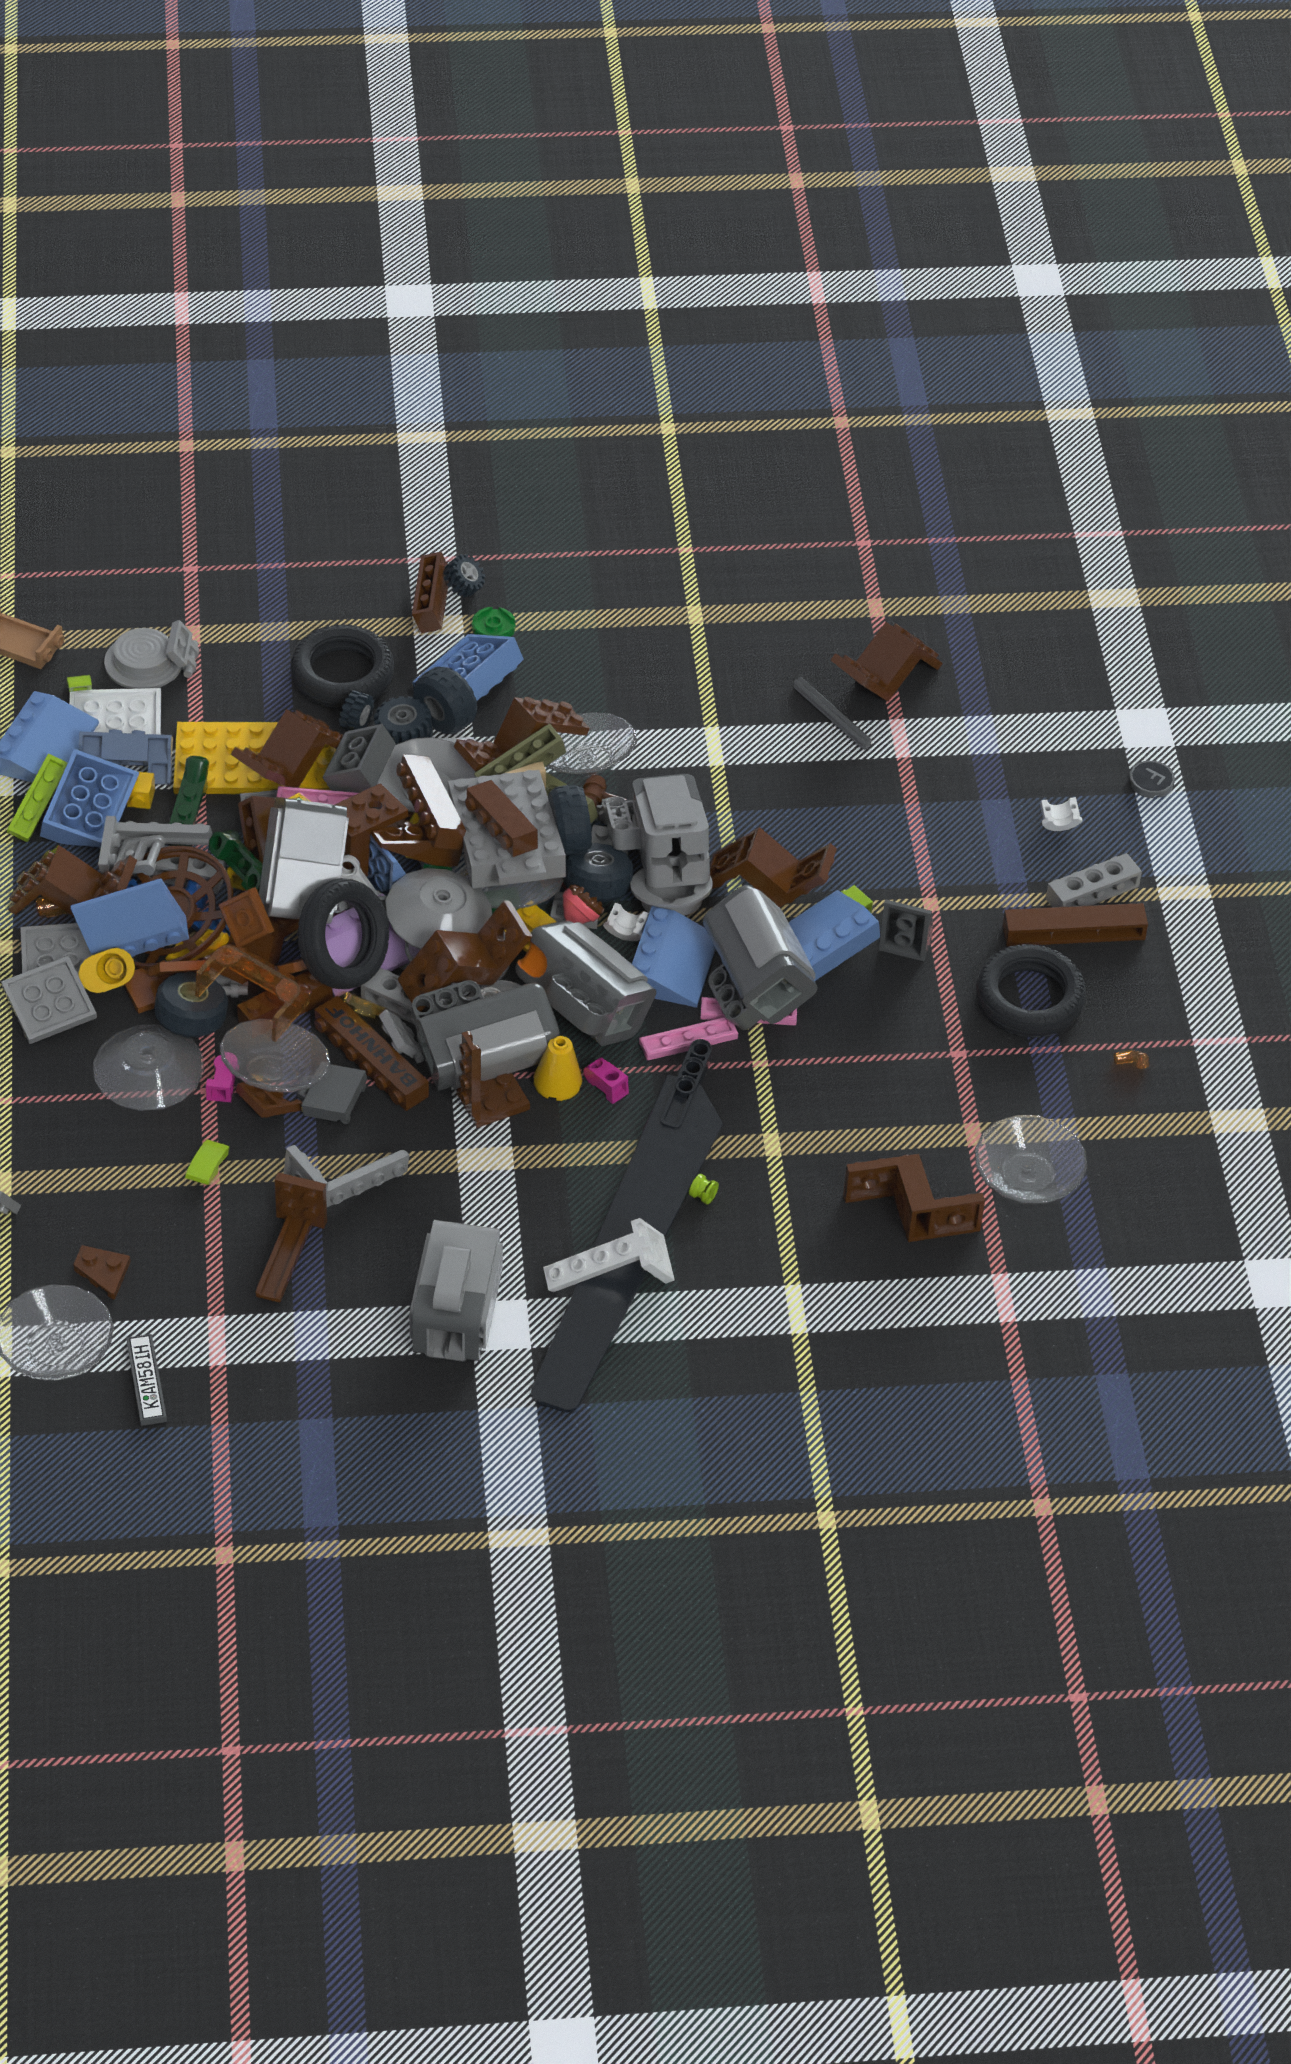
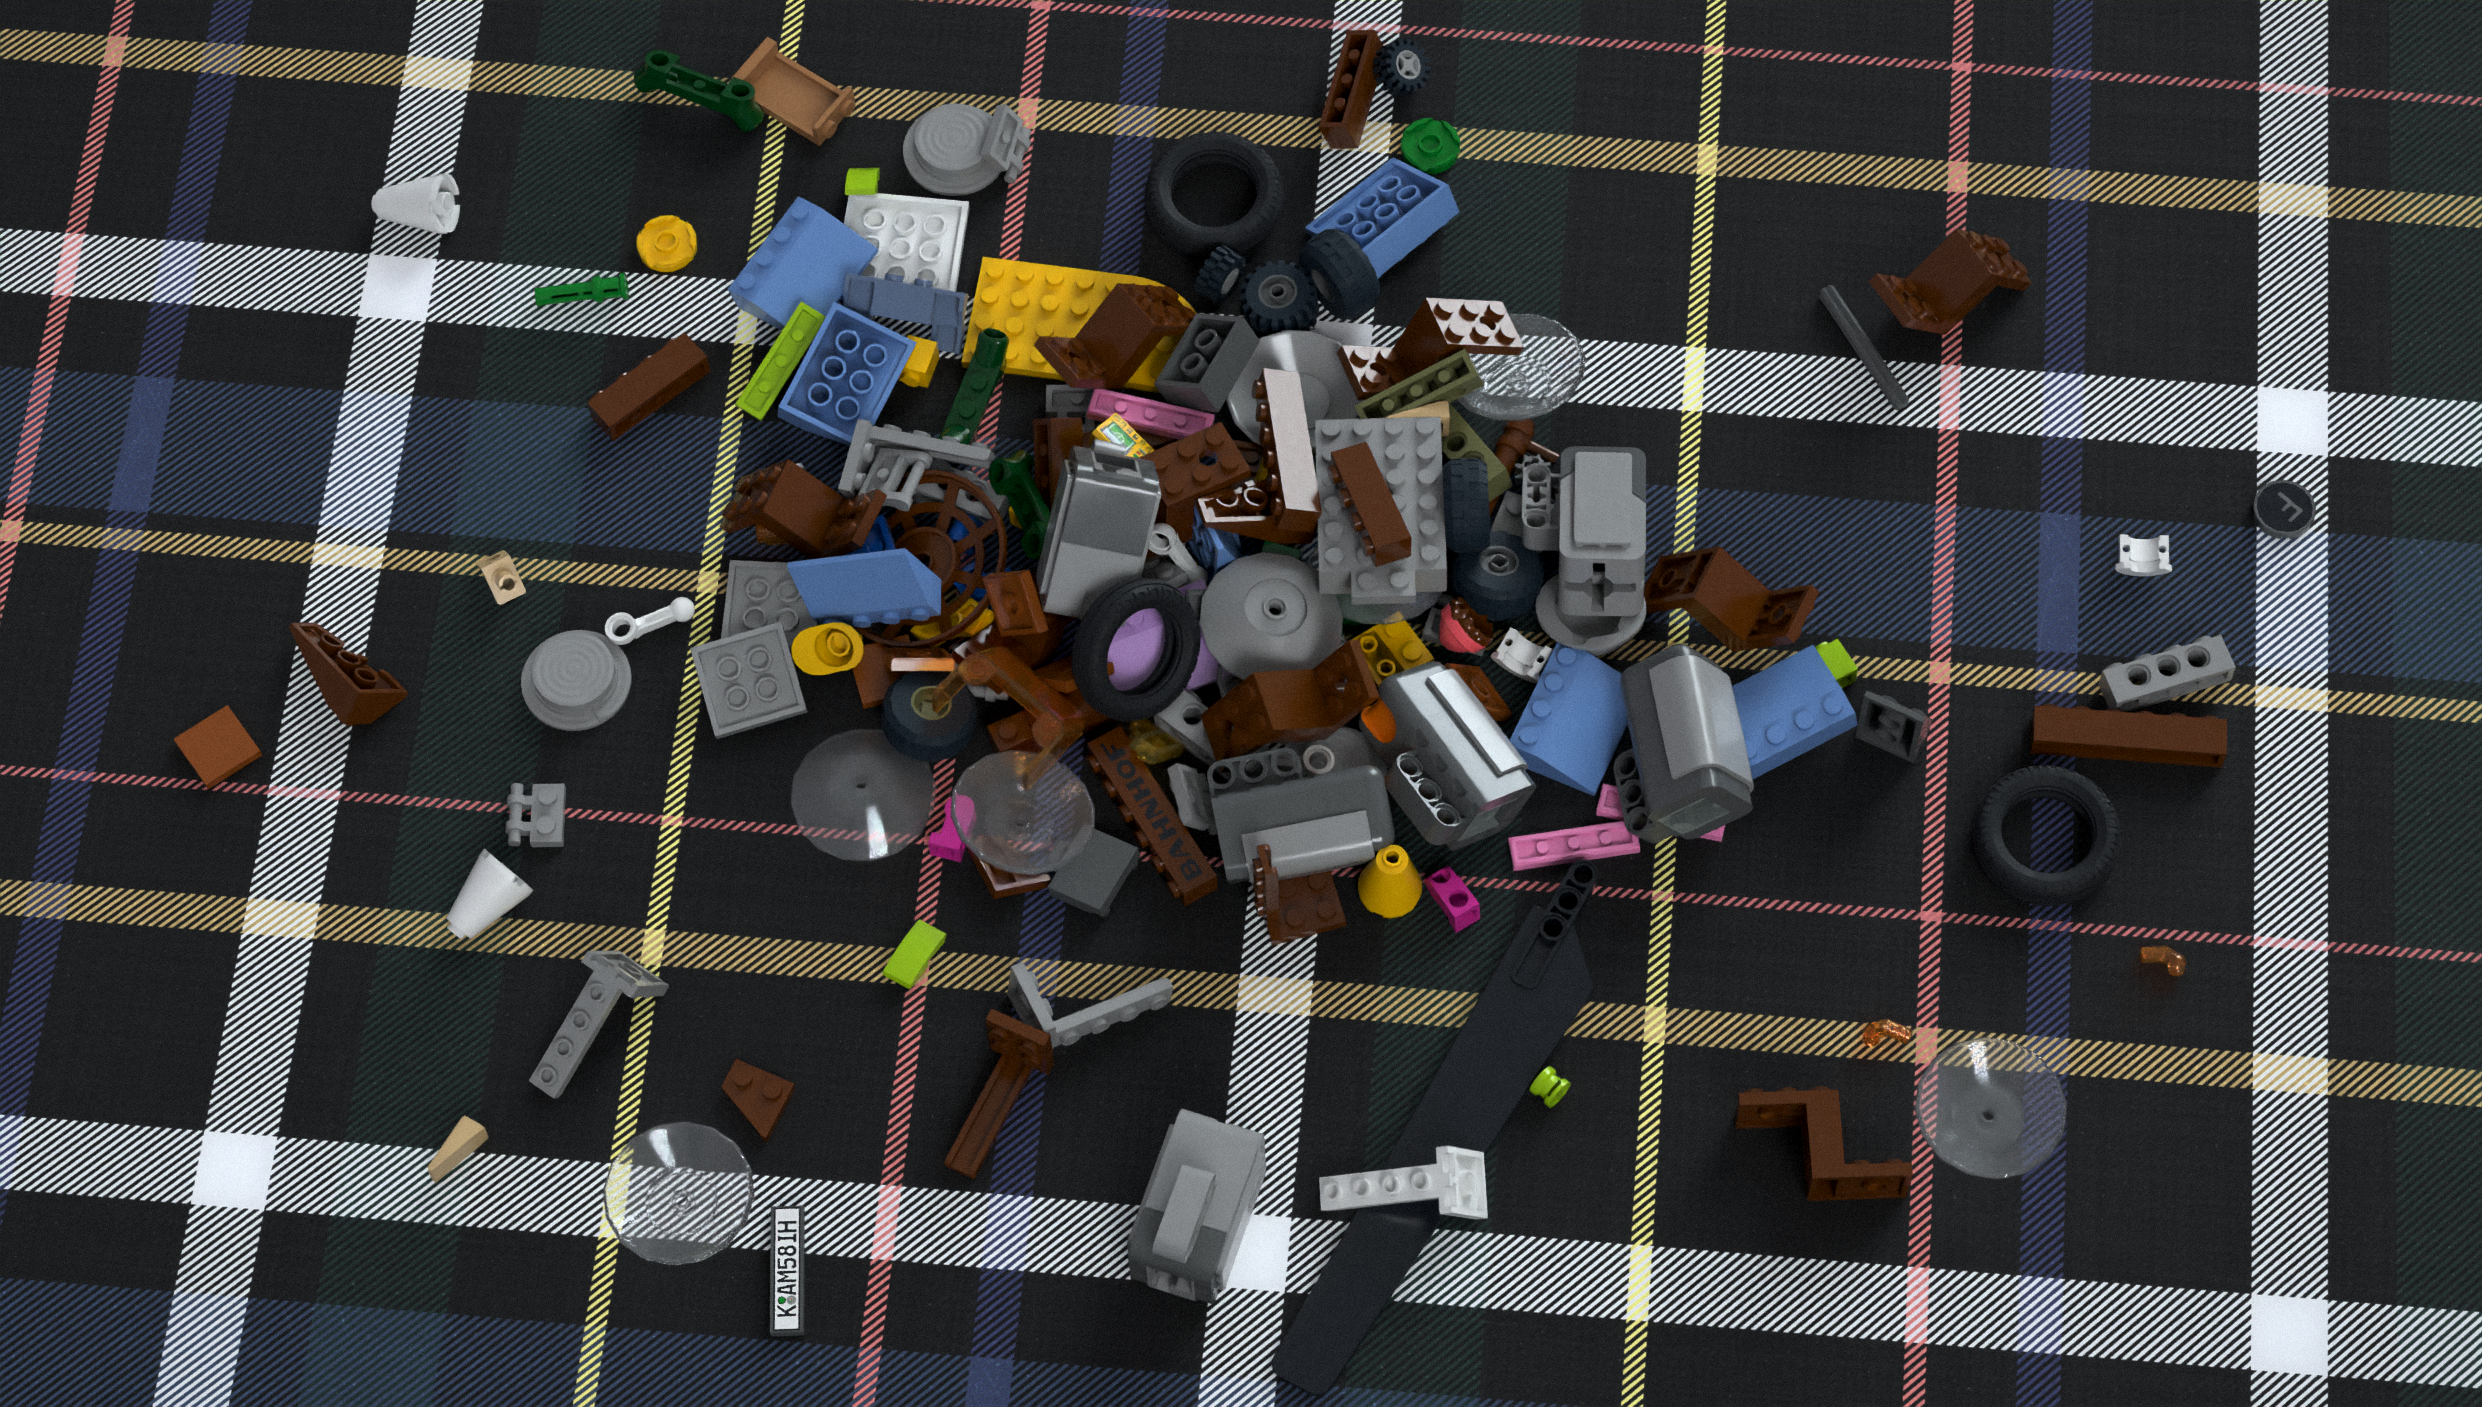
camera: 15 degrees right, 15 degrees up
(940, 1124) = (1885, 1028): none -> clear orange arm

